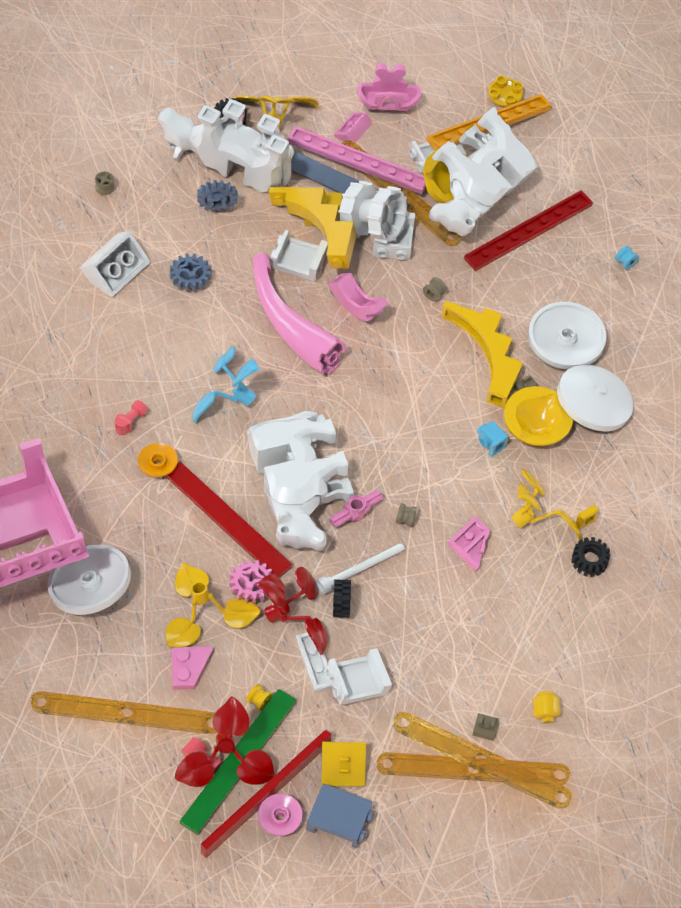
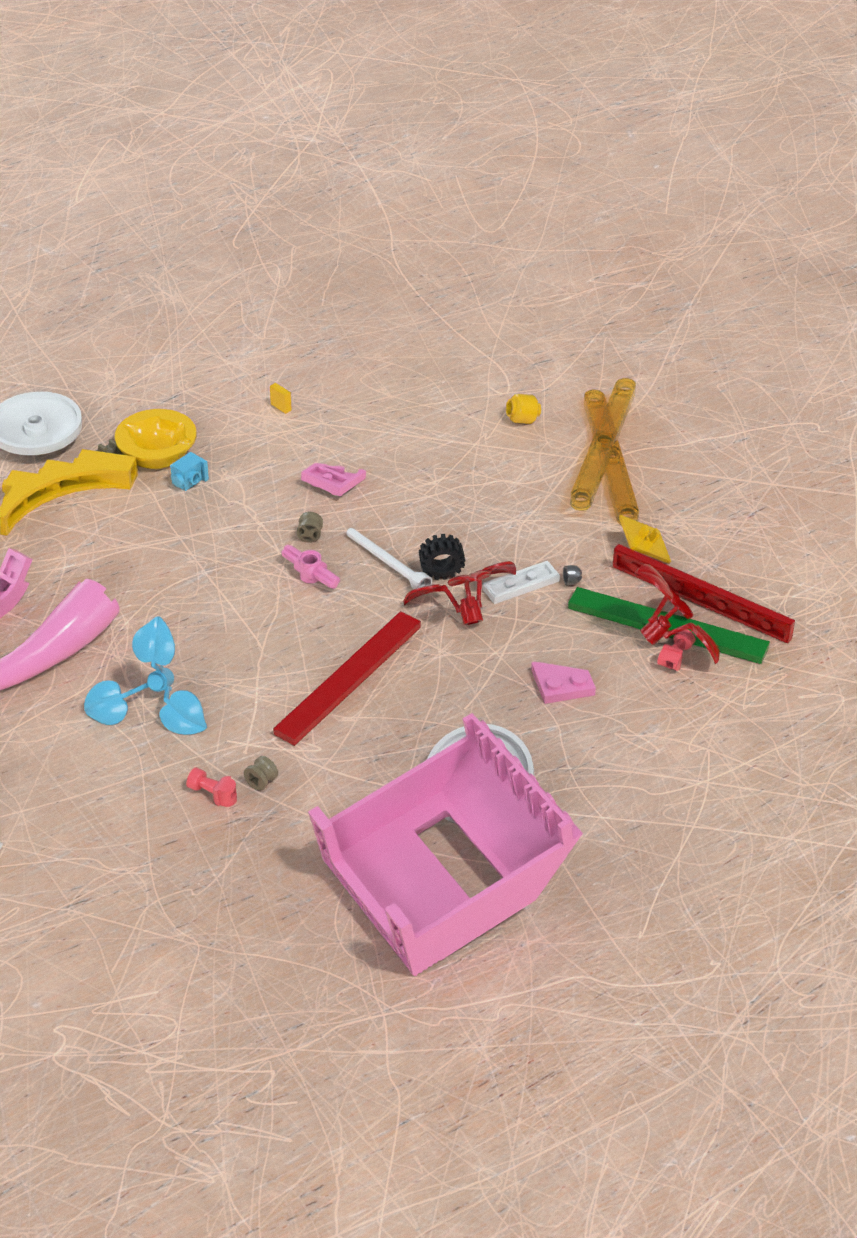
camera: 95 degrees left, 15 degrees down
(109, 711) = (645, 740): clear yellow beam -> none
(133, 446) = (260, 773): none -> dark tan wheel
(155, 454) = (280, 744): light orange dish -> none
(194, 583) = (477, 653): yellow plant -> none
(241, 580) = (435, 639): bright pink gear -> none
(259, 697) = (586, 613): yellow wheel -> none
(280, 805) = (726, 576): bright pink dish -> none
(295, 476) = (298, 603): white animal -> none
(312, 698) = (572, 574): none -> flat silver hinge
(340, 814) = (705, 537): sand blue panel -> none
(358, 678) = (533, 539): white panel -> none
(485, 726) = (557, 451): dark tan tile -> none
(526, 513) = (289, 435): yellow plant -> none
(587, 566) = (330, 394): black tyre -> none
(595, 397) = (121, 399): white dish -> none

